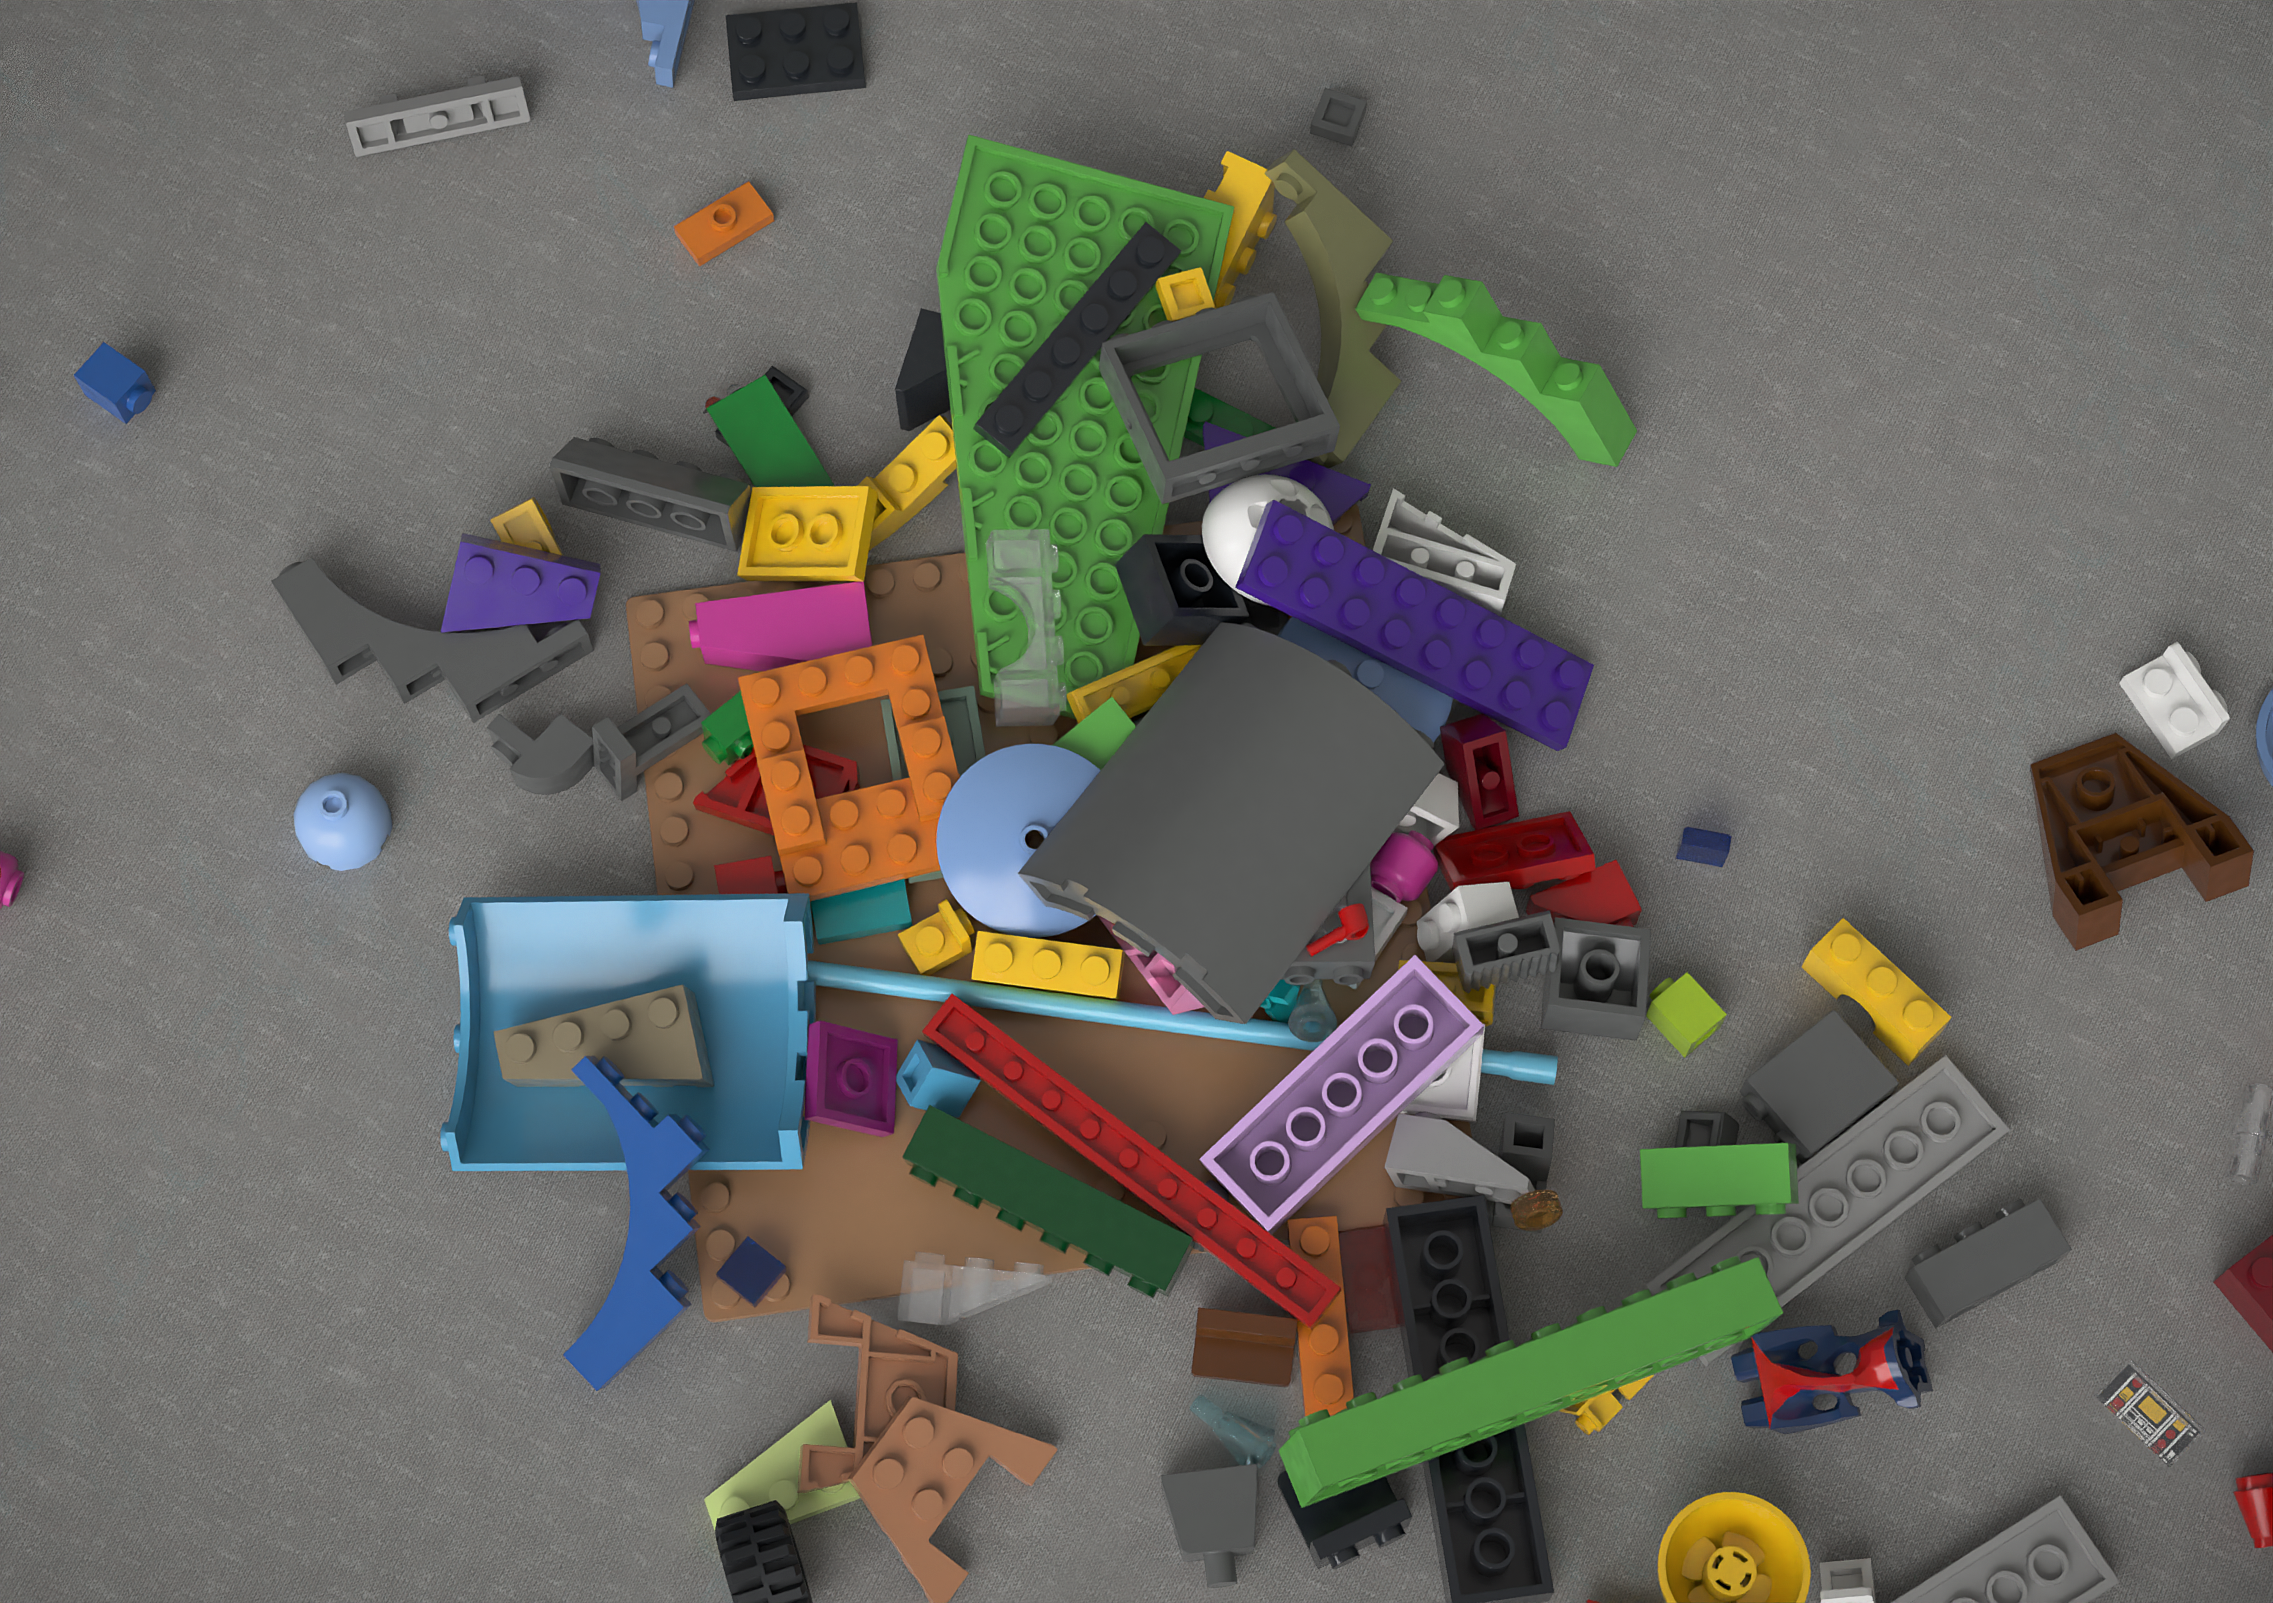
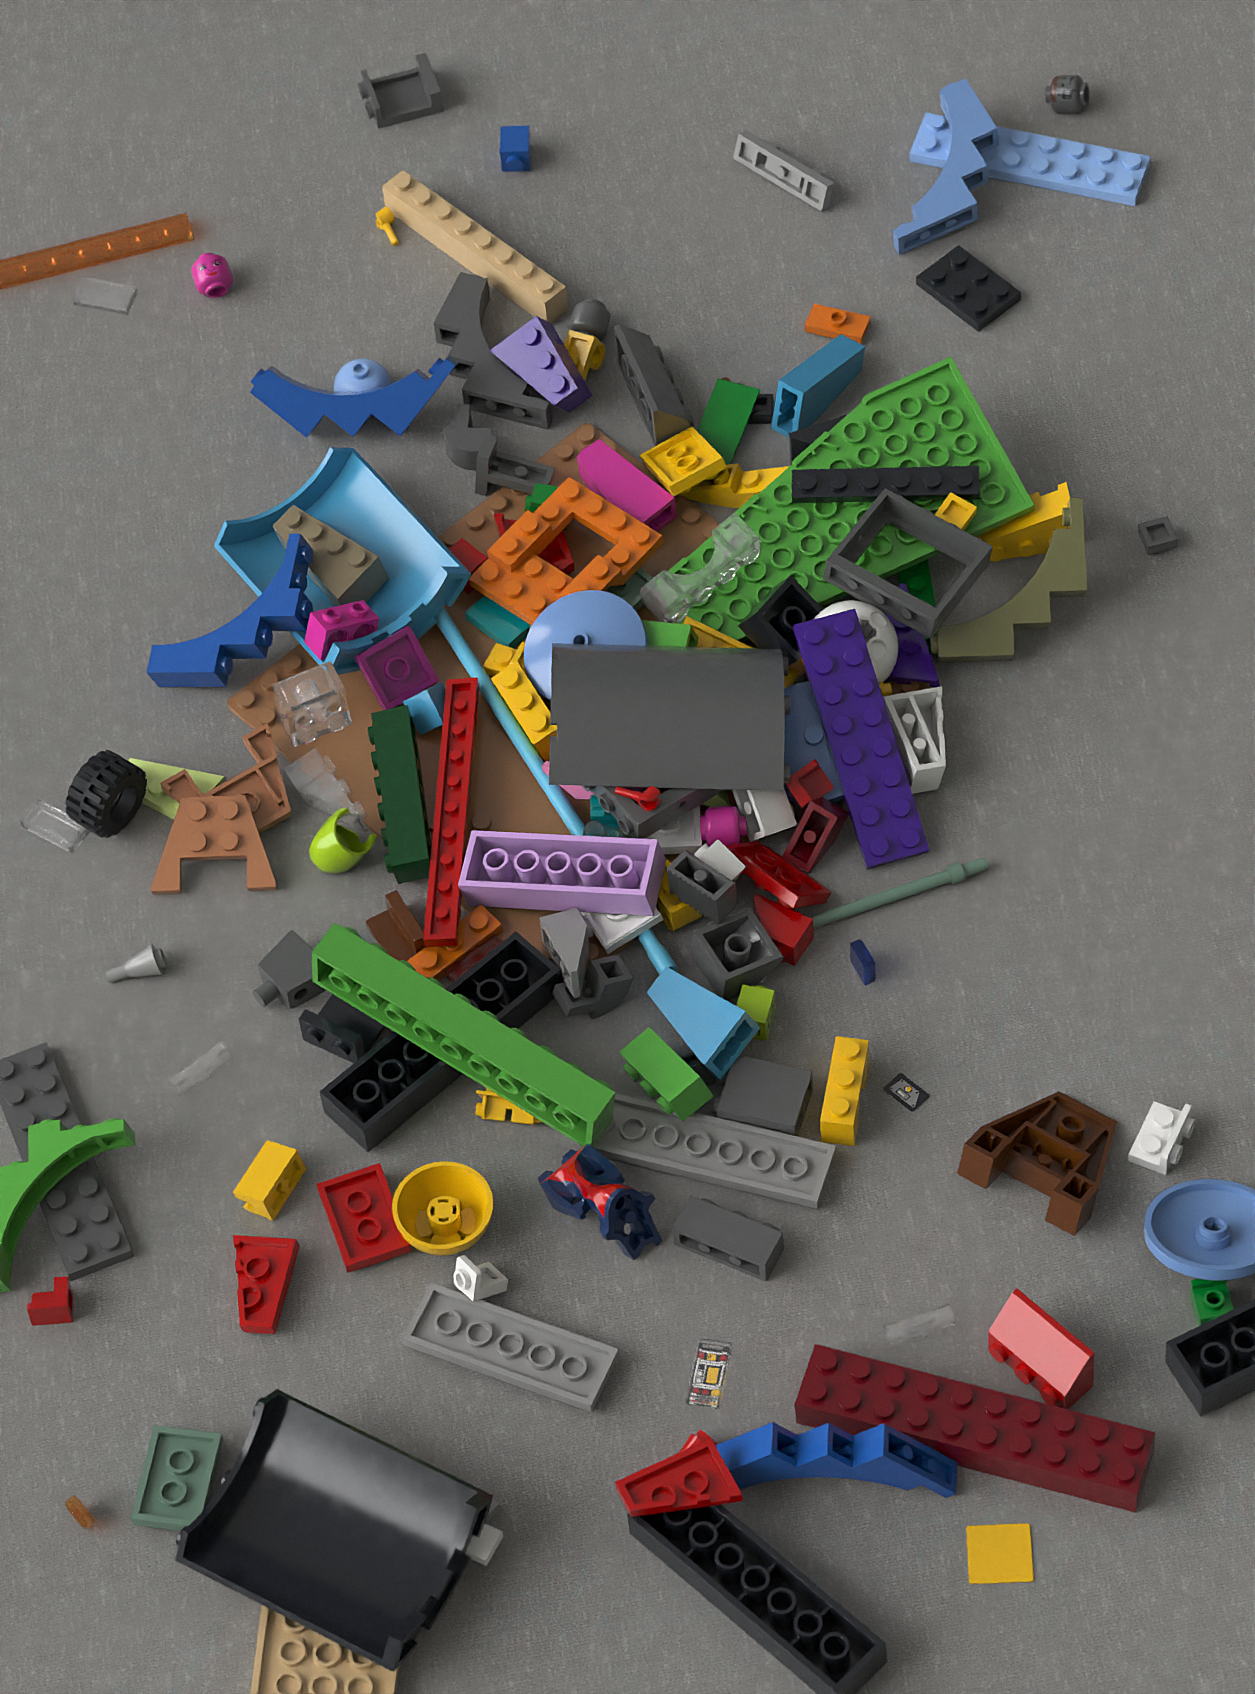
camera: 60 degrees right, 15 degrees down
(81, 613) = (383, 221): none -> yellow hand
(234, 538) = (475, 247): none -> tan brick
(419, 800) = (392, 404): none -> blue arch
(479, 488) = (590, 318): none -> dark grey head
(751, 1106) = (339, 625): none -> dark pink brick
(751, 1272) = (260, 699): clear blue tile -> none
(811, 310) = (816, 384): none -> dark azure slope
(829, 1218) = (312, 704): none -> clear brick
(1068, 1332) = (337, 847): none -> lime piece
(1430, 720) = (809, 784): none -> red panel
(1517, 351) = (1062, 687): bright green arch -> none
(1536, 1210) = (568, 993): clear orange tile -> none
(1646, 664) = (954, 873): none -> sand green bar
(1680, 1081) = (705, 1021): none -> dark azure slope
(1907, 926) = (906, 1092): none -> sticker

